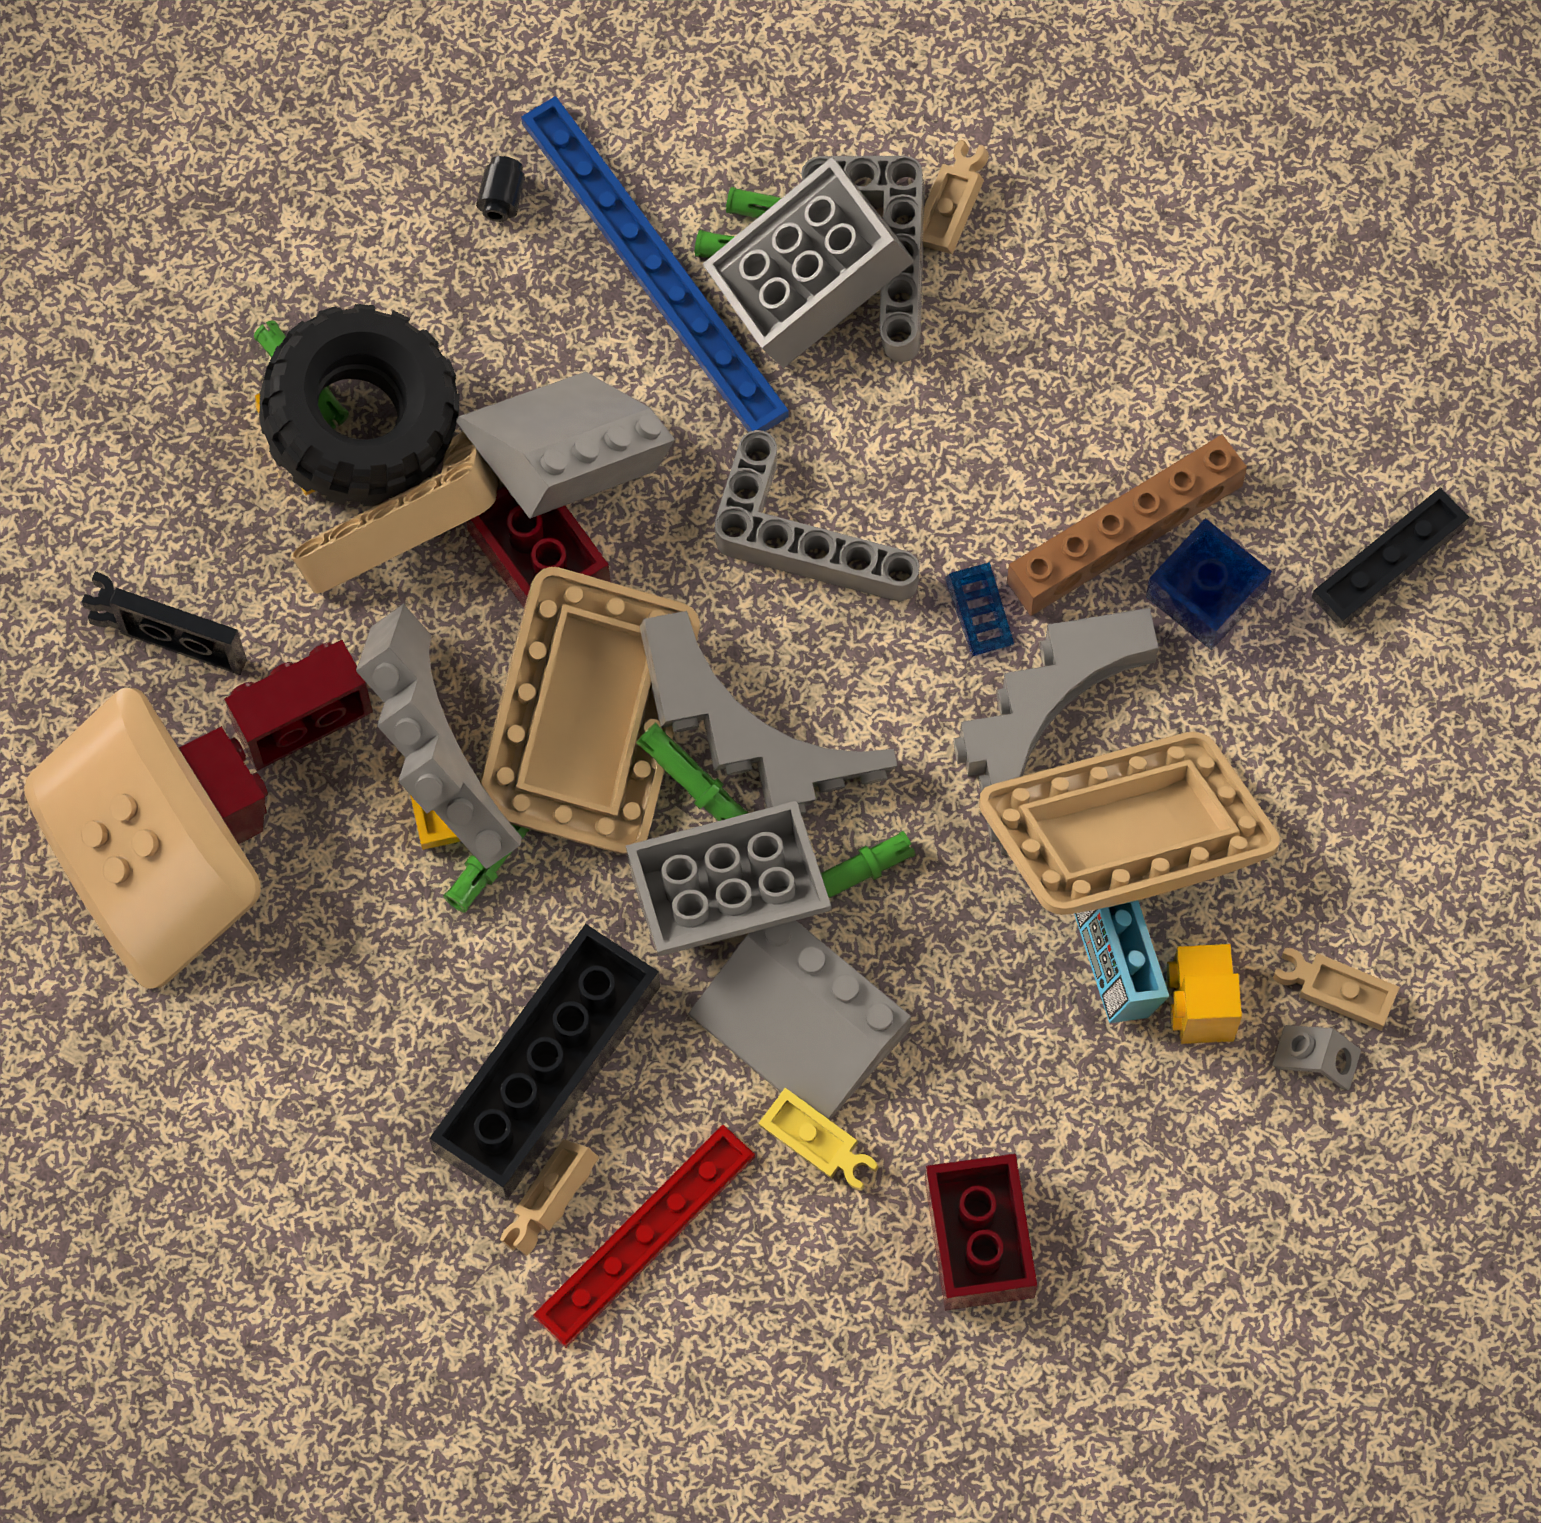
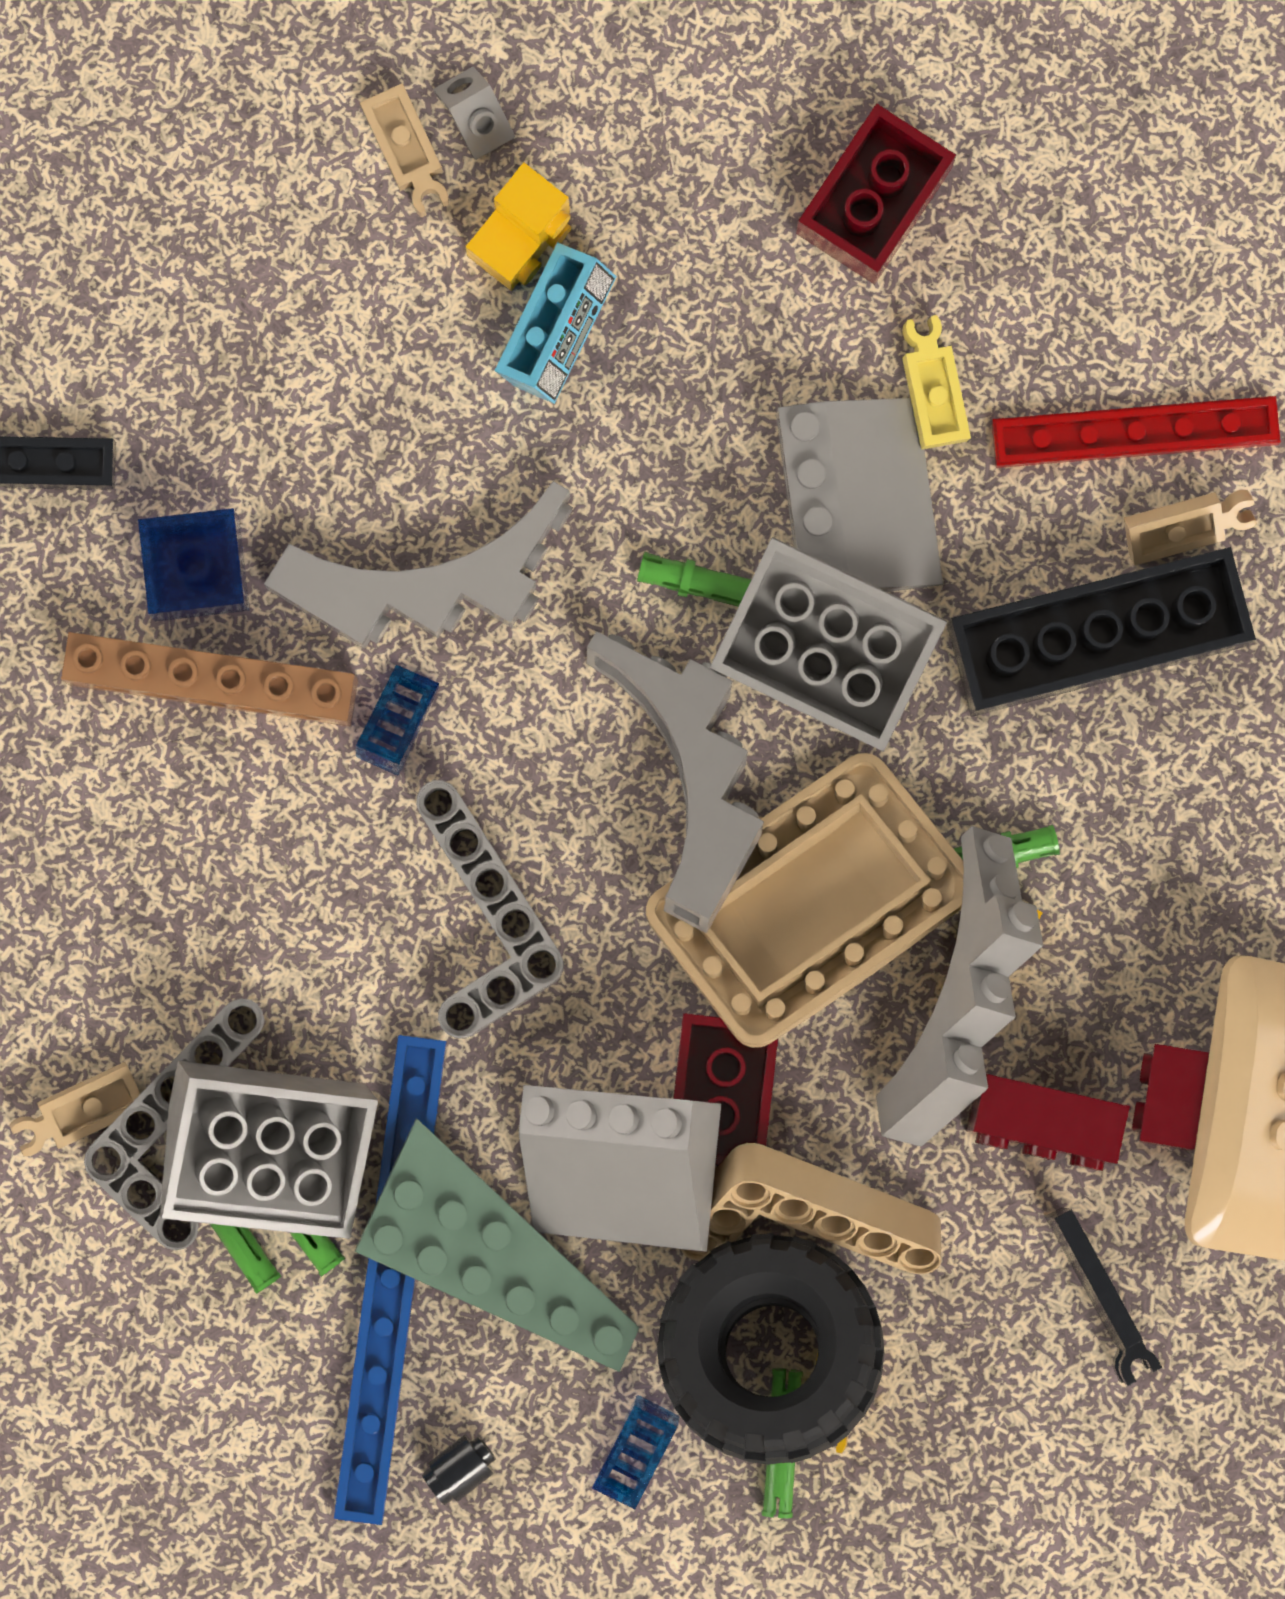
camera: 140 degrees left, 15 degrees up
(390, 263) = (653, 1415): none -> clear blue slope
(616, 323) = (466, 1241): none -> sand green wing
(683, 769) = (769, 752): bright green pin -> none
(1129, 824) = (459, 407): tan wedge -> none

